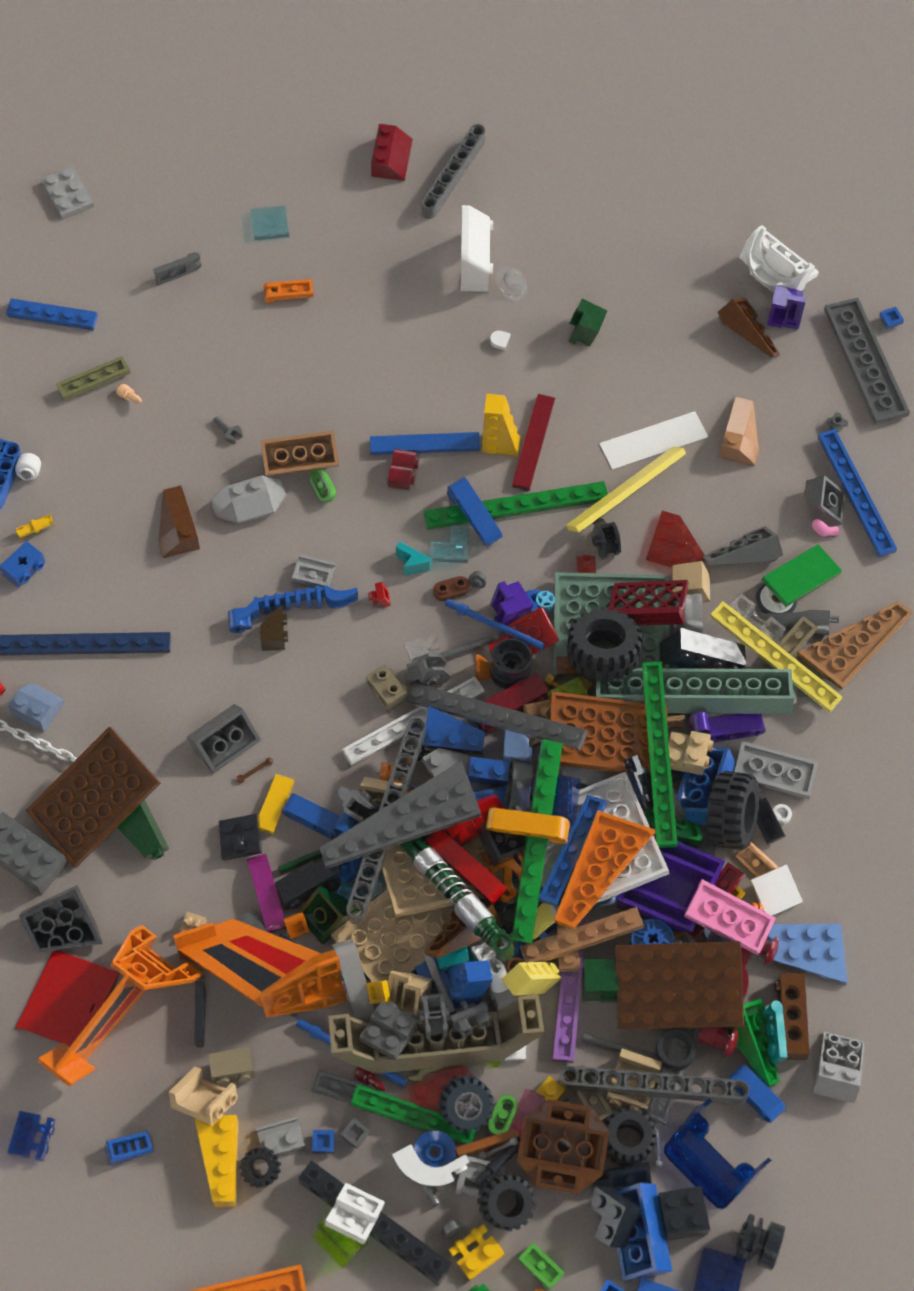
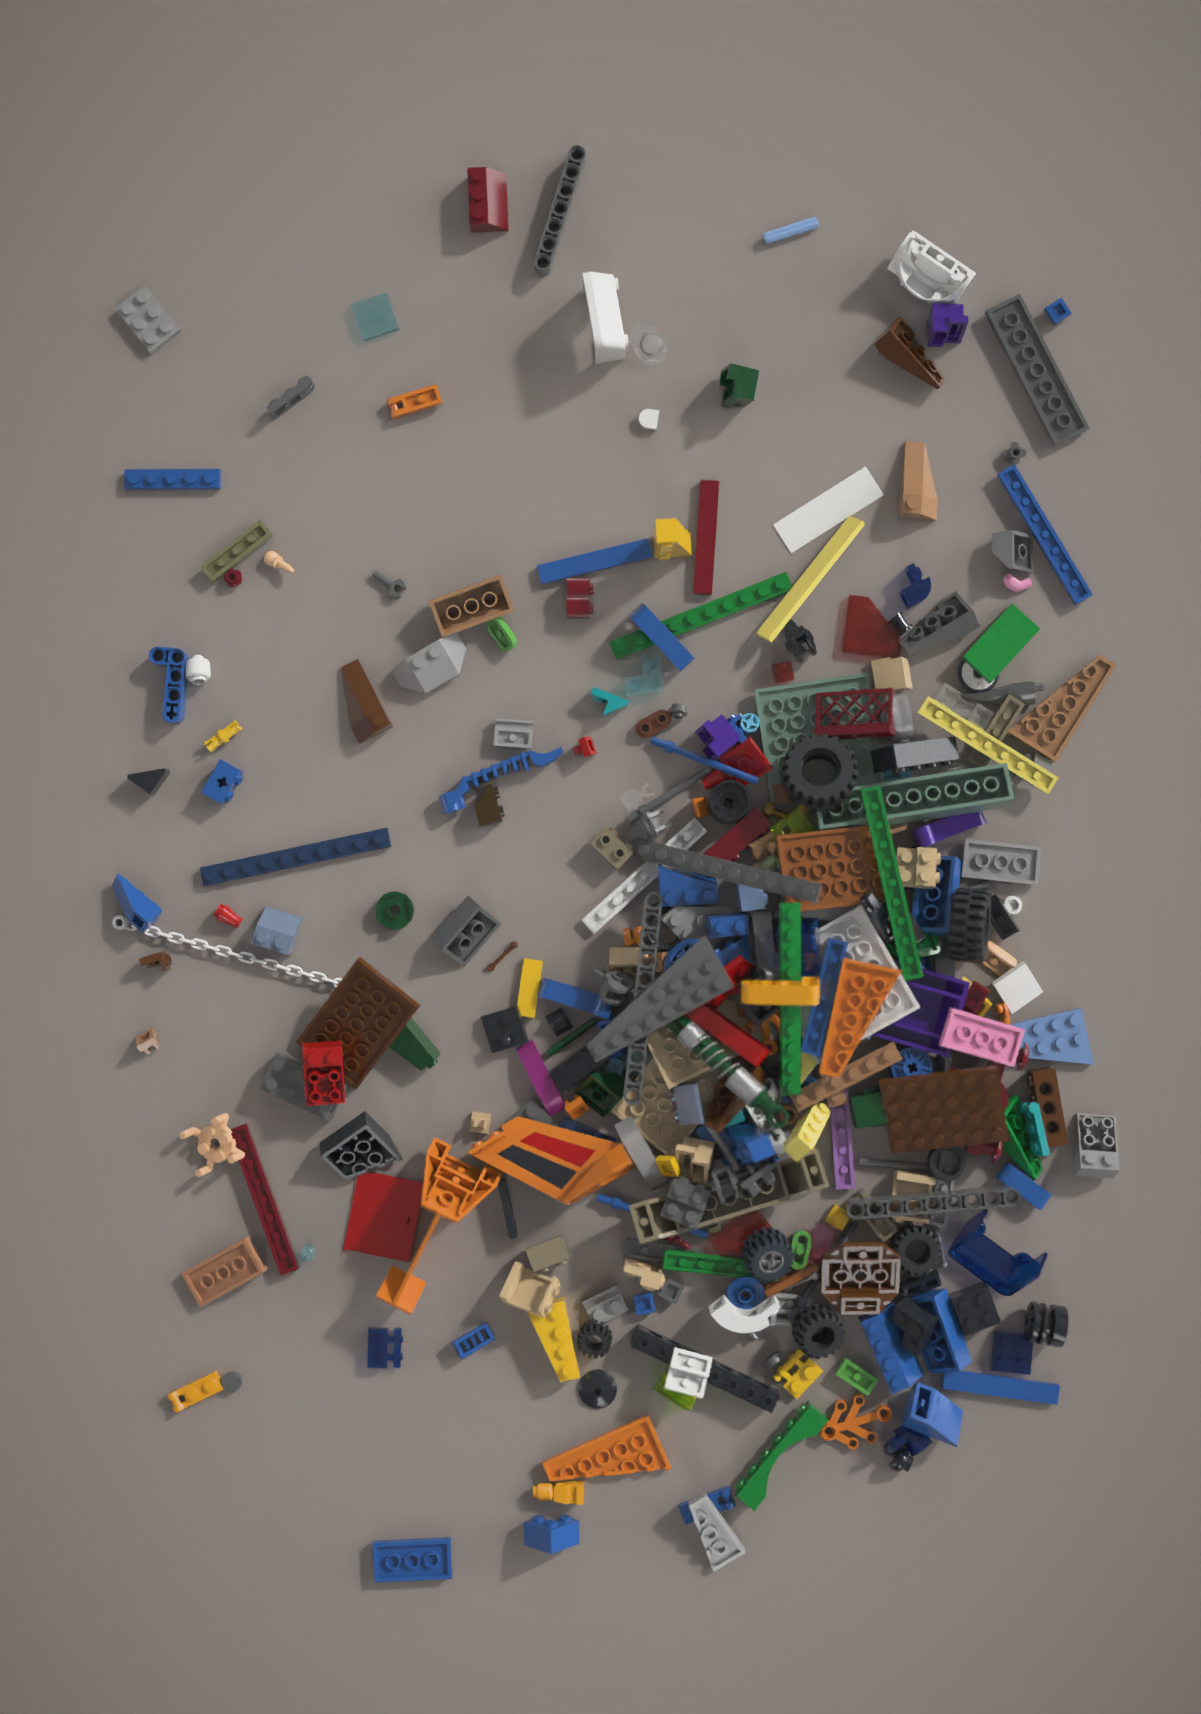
camera: 10 degrees left, 25 degrees up
(45, 833) = (323, 1073): none -> red slope
(86, 403) = (233, 582): none -> dark red plate
(163, 716) = (388, 919): none -> dark green plate
(256, 1238) = (597, 1379): none -> black dish
(297, 842) = (559, 1021): none -> black slope
(335, 1106) = (649, 1275): none -> tan plate
(412, 934) = (687, 1103): none -> sand blue slope
(587, 1256) = (896, 1364): none -> blue slope
(654, 219) = (790, 230): none -> light blue axle
(706, 542) = (900, 623): none -> black bush
(727, 517) = (919, 588): none -> clear blue brick

